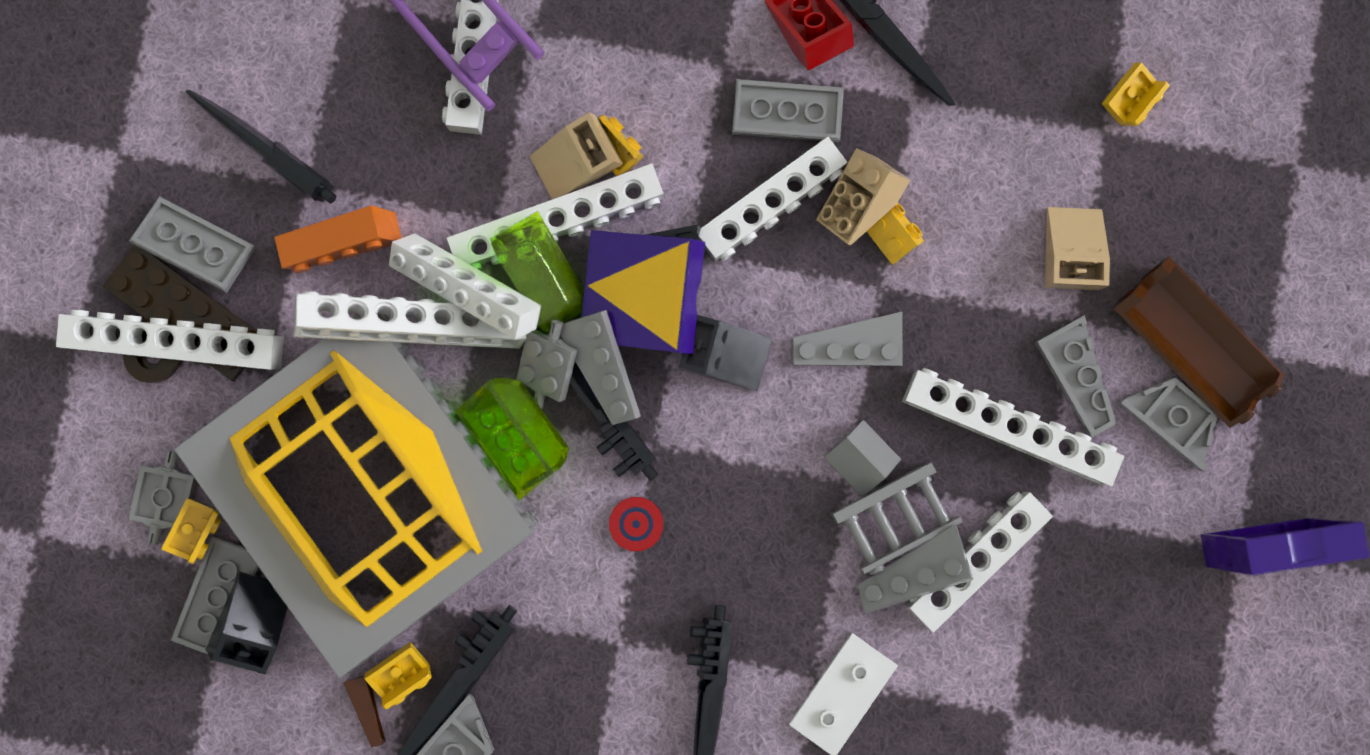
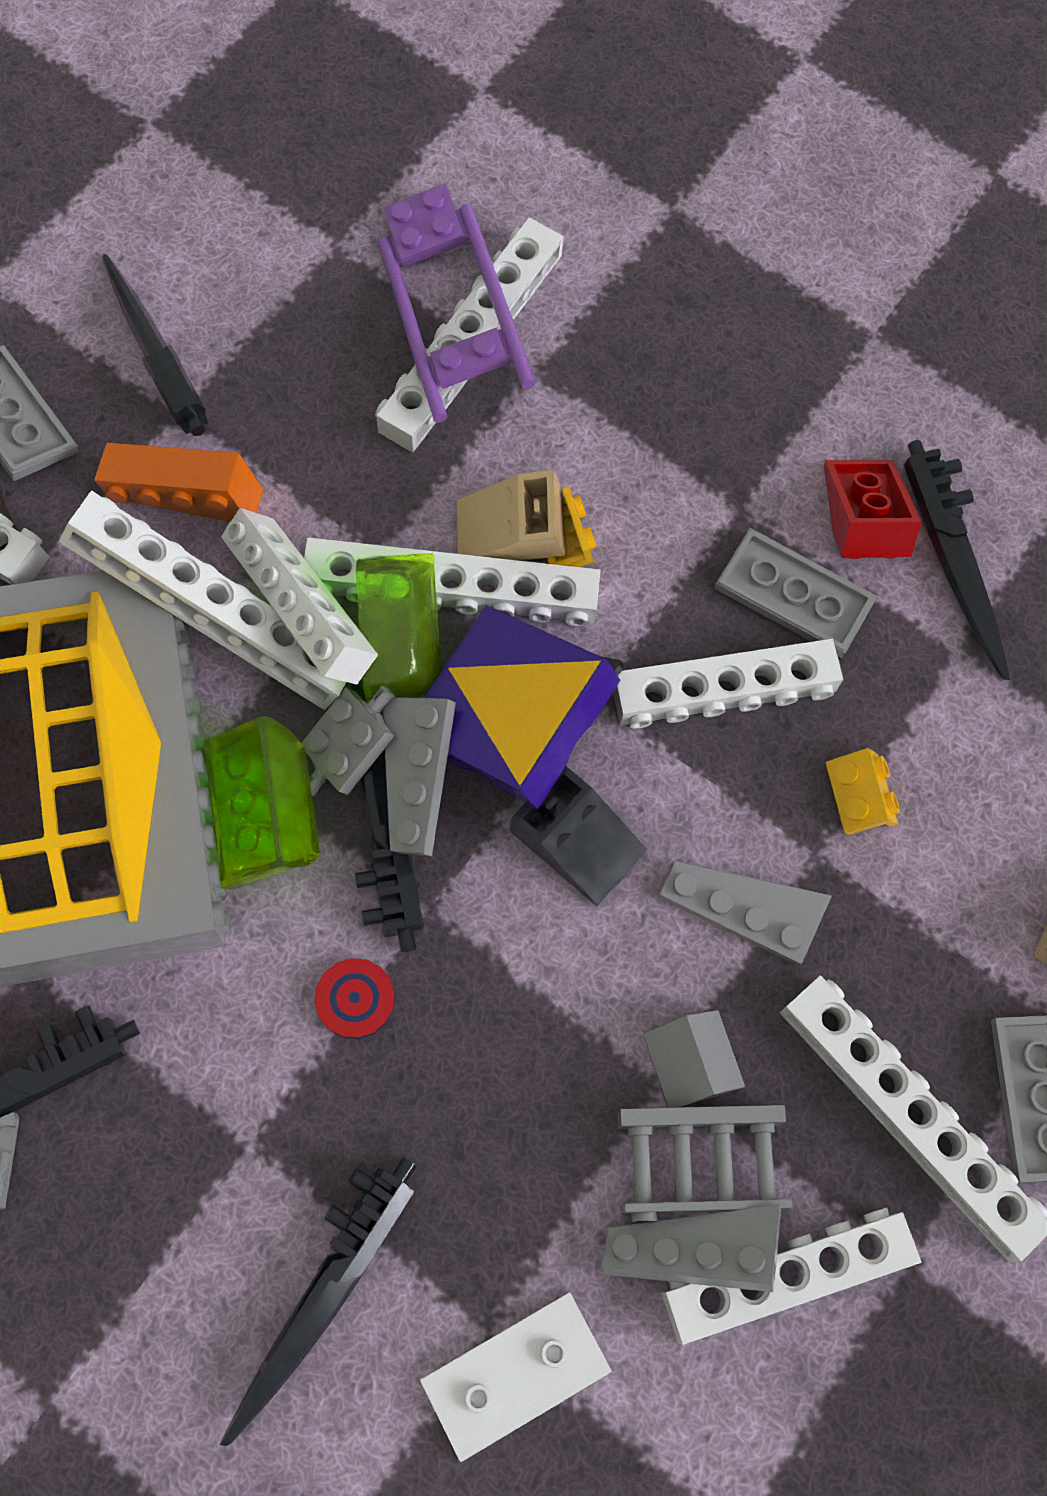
camera: 15 degrees right, 15 degrees down
(861, 196) = (844, 727): tan slope -> none

